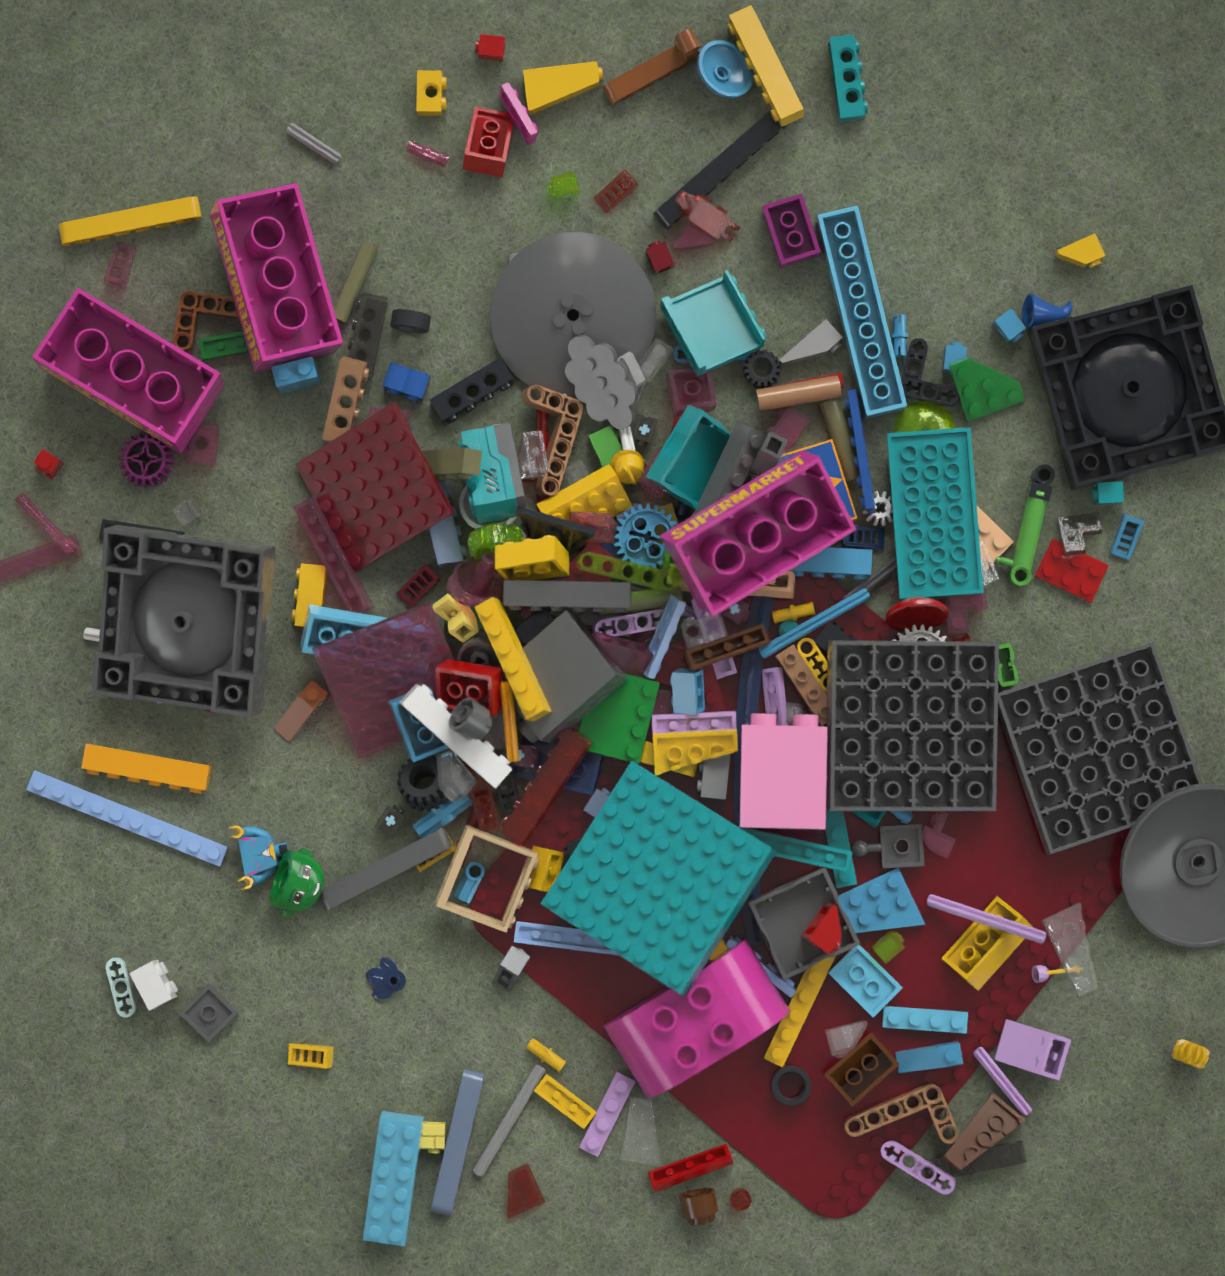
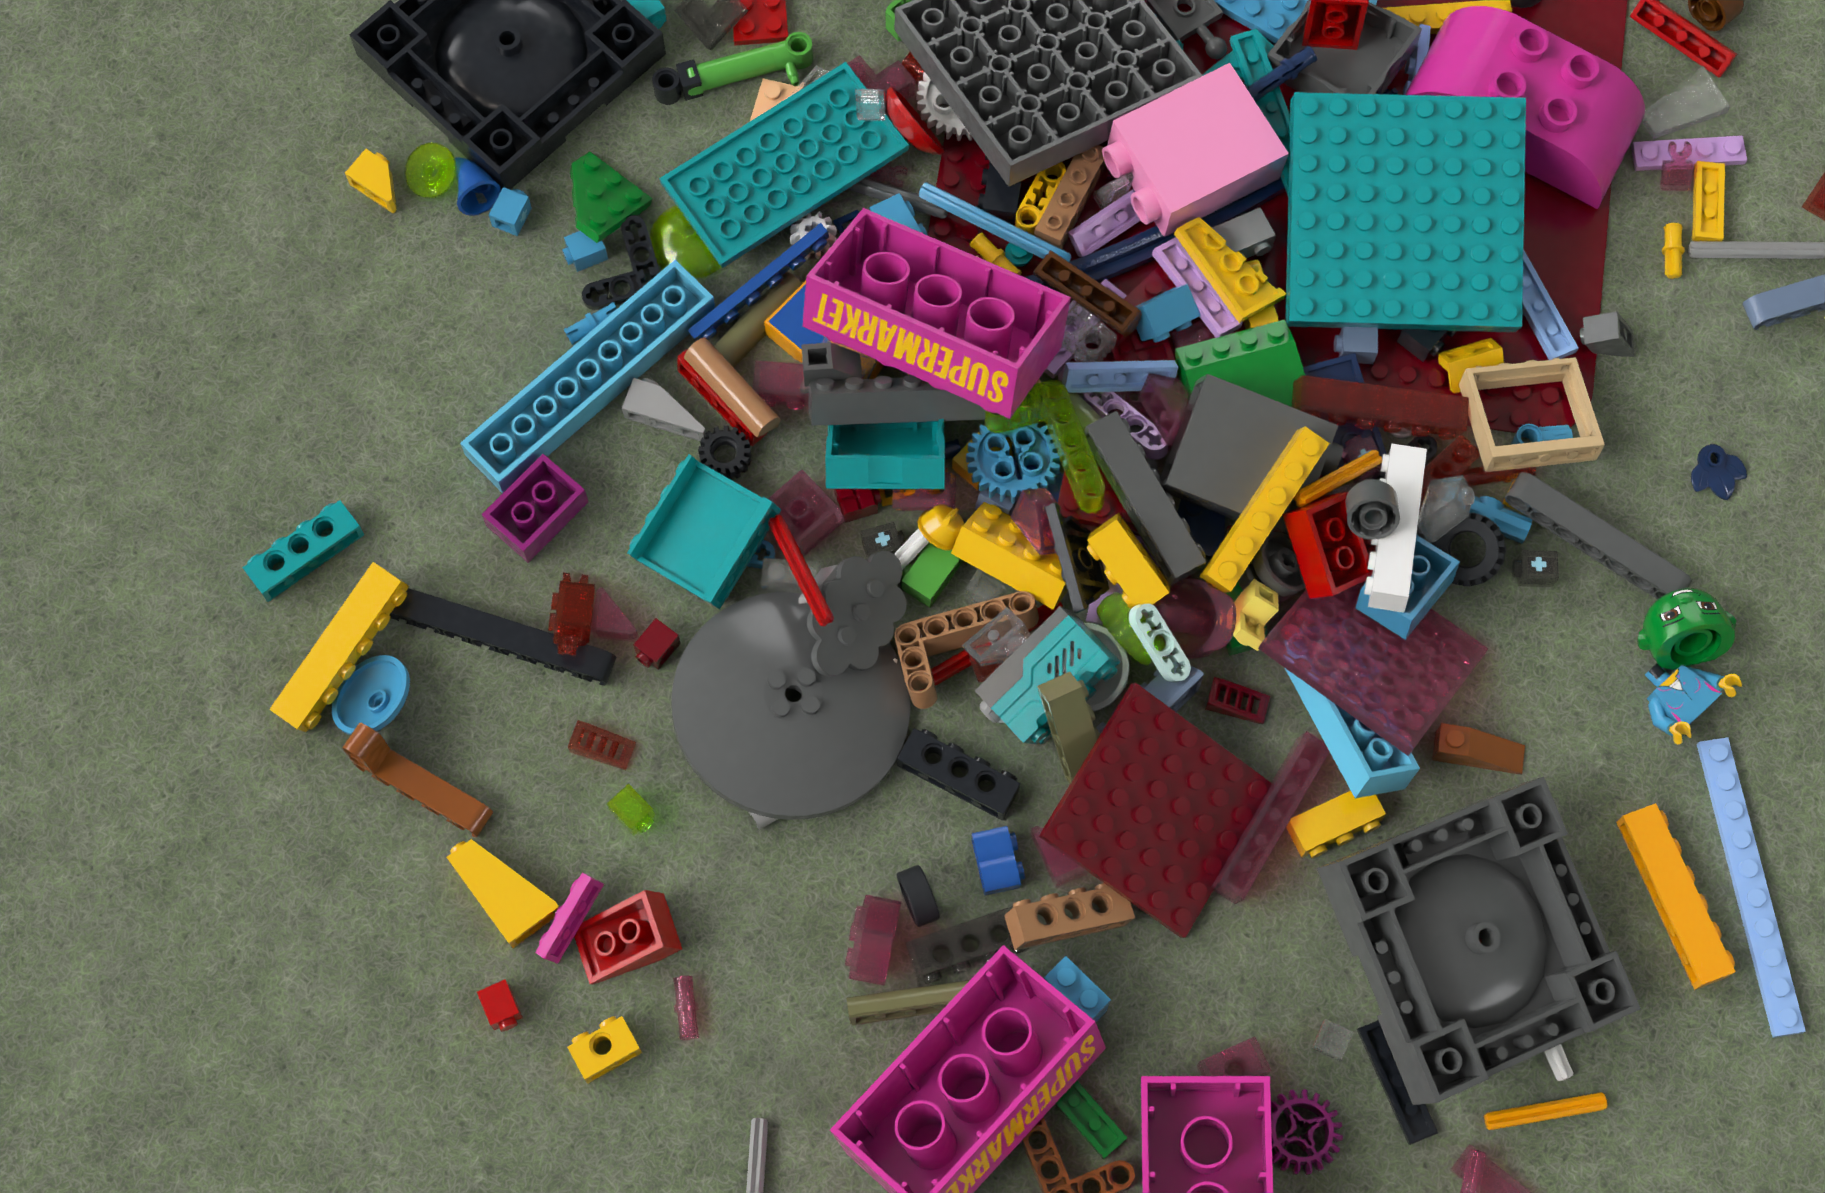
camera: 120 degrees left, 15 degrees down
(73, 609) = (1545, 1111): none -> light orange axle
(401, 281) = (873, 939): none -> clear pink brick
(463, 552) = (1147, 639): none -> light aqua beam
(597, 1094) = (1678, 171): none -> clear pink plate
(644, 359) = (800, 570): none -> red axle
(803, 862) = (1287, 70): none -> dark blue pin
(939, 587) = (870, 104): none -> clear slope
(1068, 283) = (420, 168): none -> clear neon green dish

